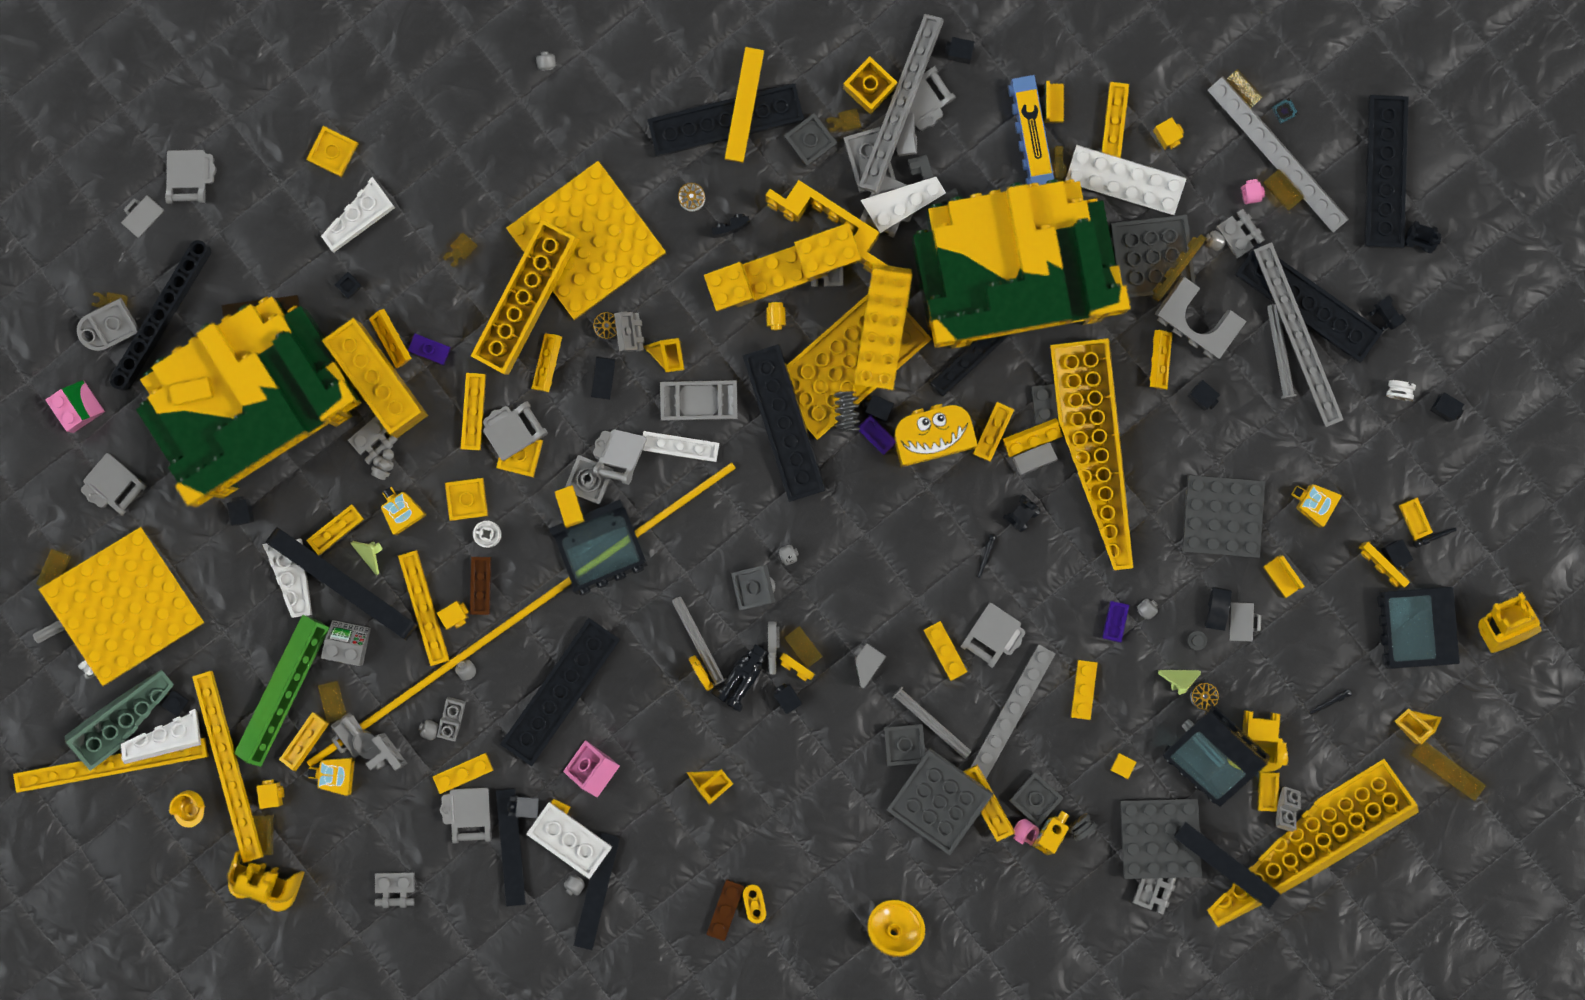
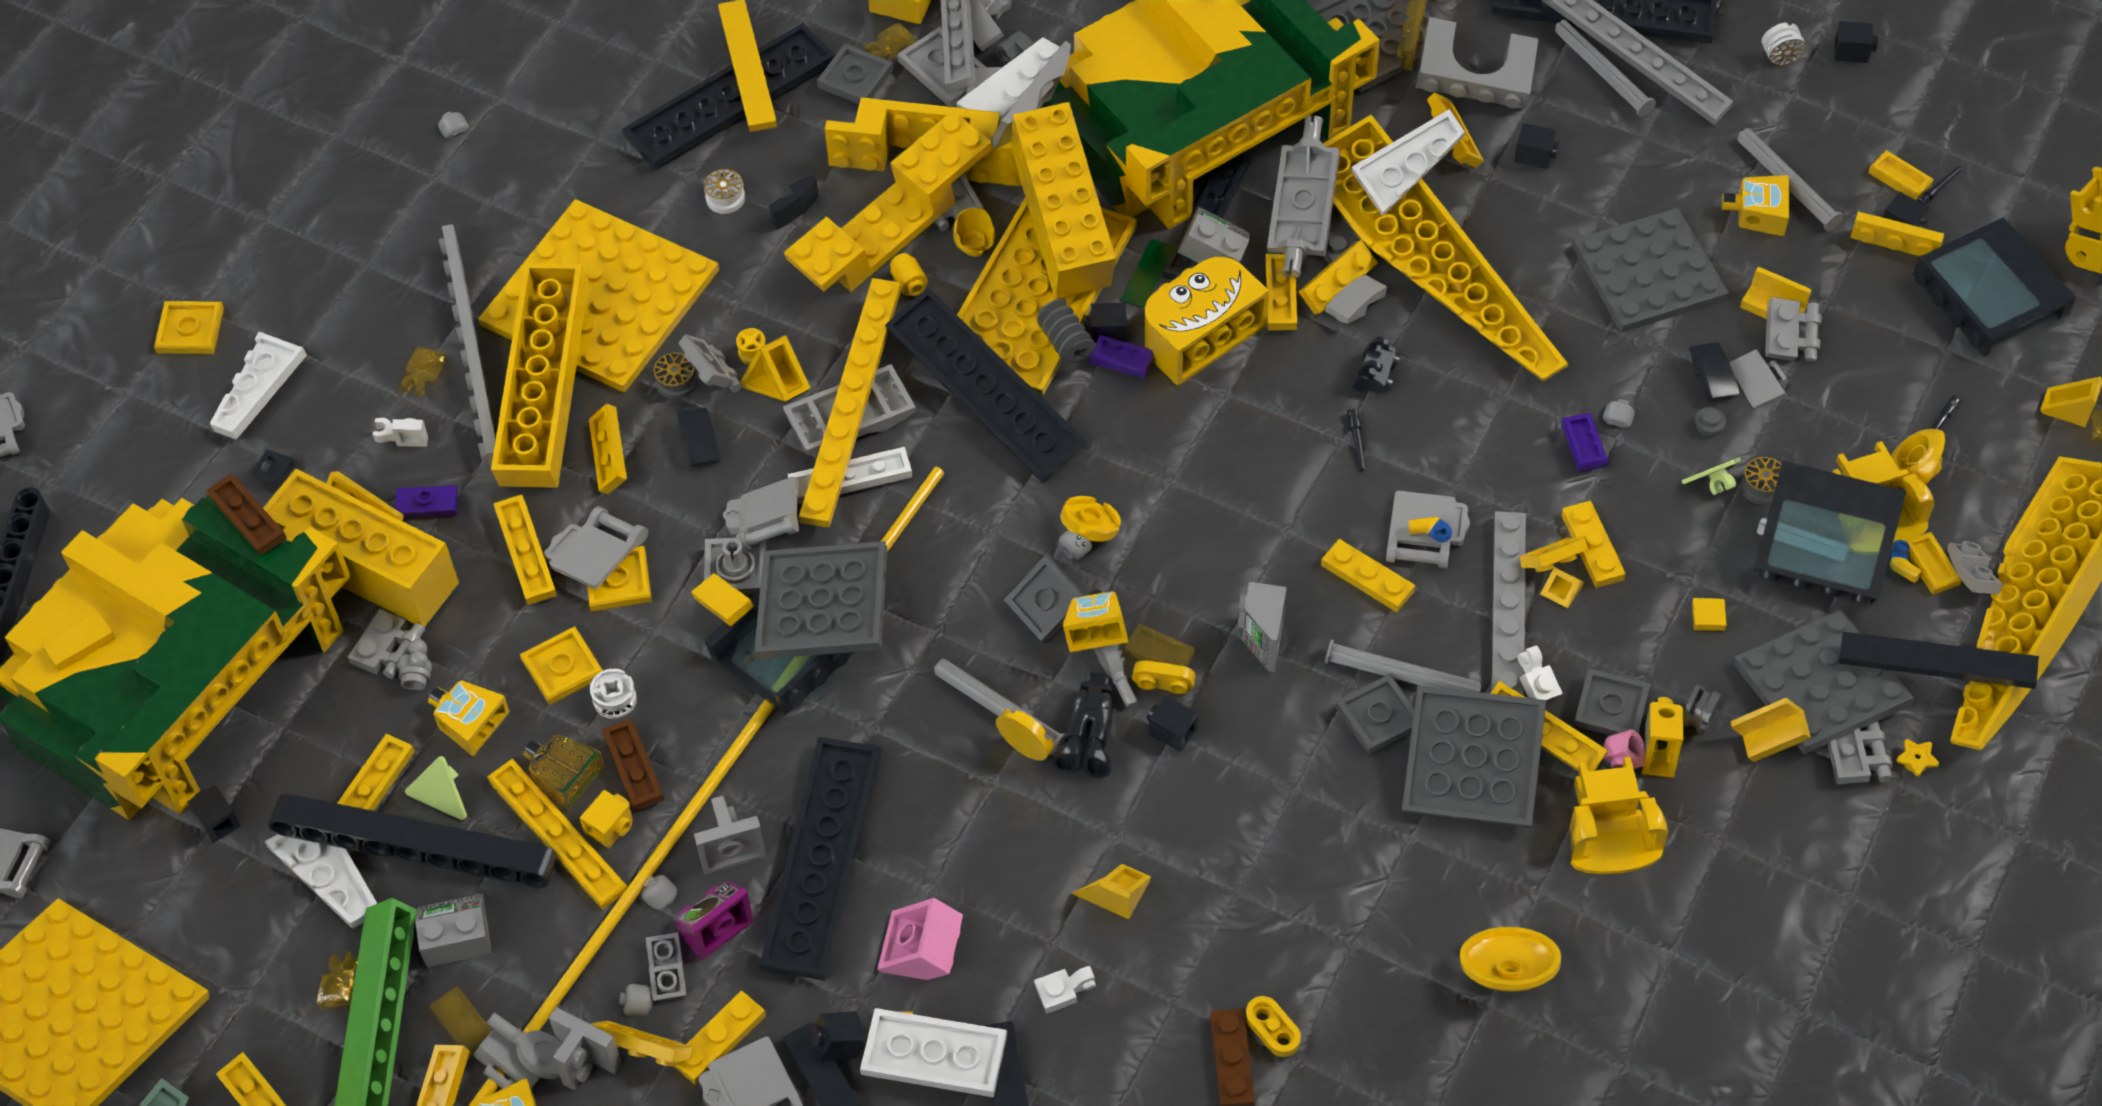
camera: 20 degrees left, 30 degrees down
(273, 651) = (338, 986): none -> clear yellow plate
(307, 360) = (246, 514): none -> reddish brown plate
(418, 763) = (642, 1043): none -> yellow plate
(435, 295) = (405, 432): none -> white plate
(440, 571) = (563, 768): none -> clear yellow torso
(486, 705) = (715, 919): none -> magenta slope
(494, 239) = (467, 335): none -> light grey plate
(514, 655) = (729, 842): none -> light grey bracket
(622, 541) = (821, 600): none -> dark grey plate
(653, 829) = (1059, 990): none -> white plate
(658, 322) = (748, 343): none -> yellow wheel
(701, 398) = (850, 404): none -> yellow plate
(770, 623) = (1094, 622): none -> yellow torso
(804, 543) = (1090, 519): none -> yellow tile
(828, 304) = (973, 231): none -> yellow hair
(899, 243) = (1036, 94): none -> light grey slope
(922, 376) = (1147, 273): none -> dark green sticker
(972, 378) = (1213, 237): none -> light grey slope
(995, 873) = (1608, 828): none -> yellow piece
(996, 640) = (1431, 526): none -> arm
(1004, 767) = (1538, 681): none -> white plate
(1036, 379) = (1303, 198): none -> light grey plate
(1051, 709) = (1561, 587): none -> yellow slope
(1055, 691) = (1562, 551): none -> yellow plate
(1107, 387) = (1399, 166): none -> white wing
(1113, 862) = (1772, 729): none -> yellow panel
(1190, 907) = (1913, 764): none -> yellow plate
(1250, 787) = (1899, 561): none -> yellow arm
(1276, 599) = (1783, 330): none -> light grey plate
(1299, 725) = (1920, 454): none -> yellow hat
(1345, 490) = (1797, 185): none -> light grey axle

